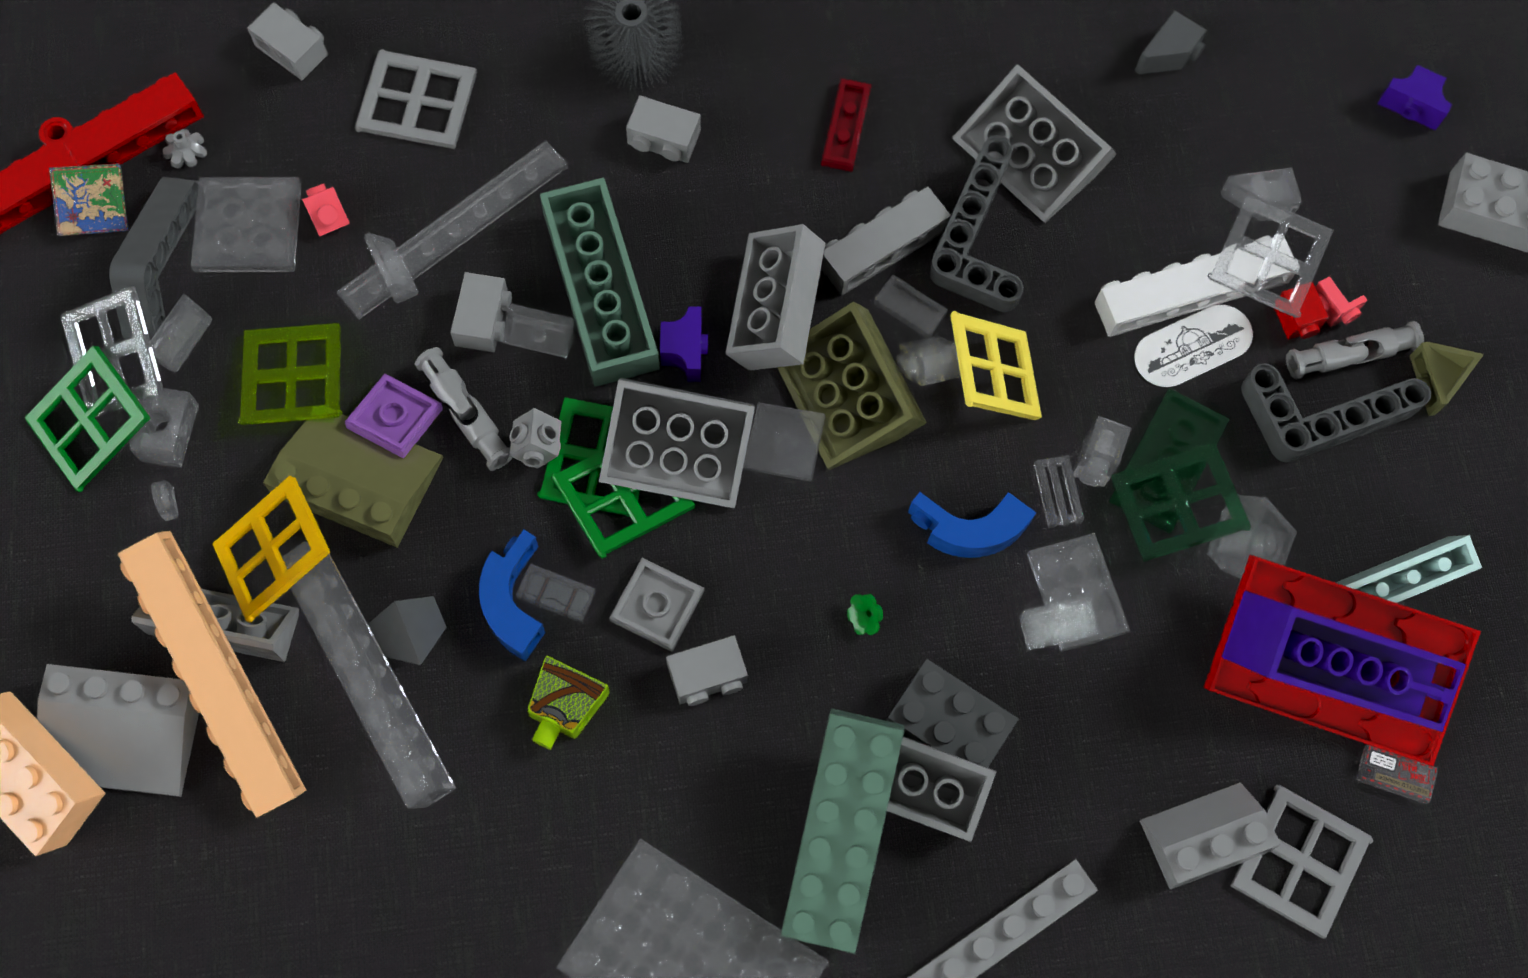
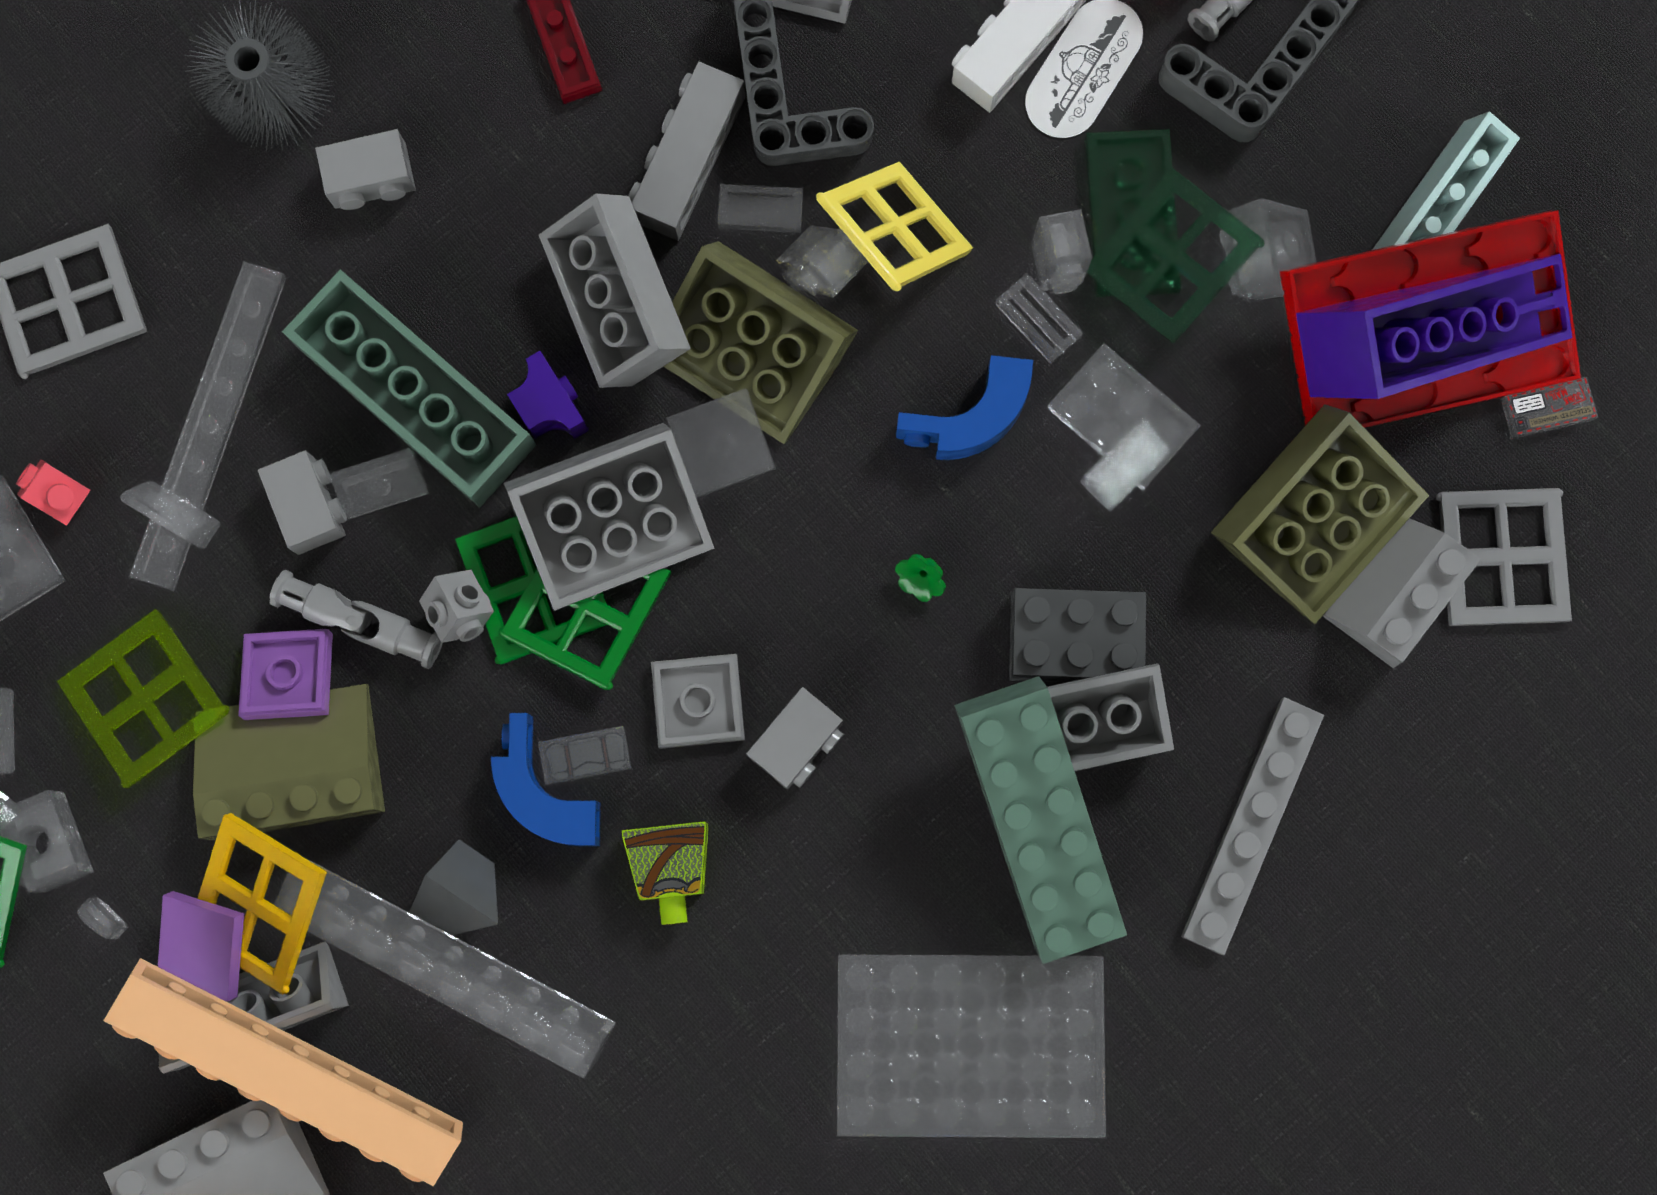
camera: 25 degrees left, 10 degrees up
(217, 554) = (201, 944): none -> medium lavender tile
(1181, 743) = (1320, 512): none -> olive slope

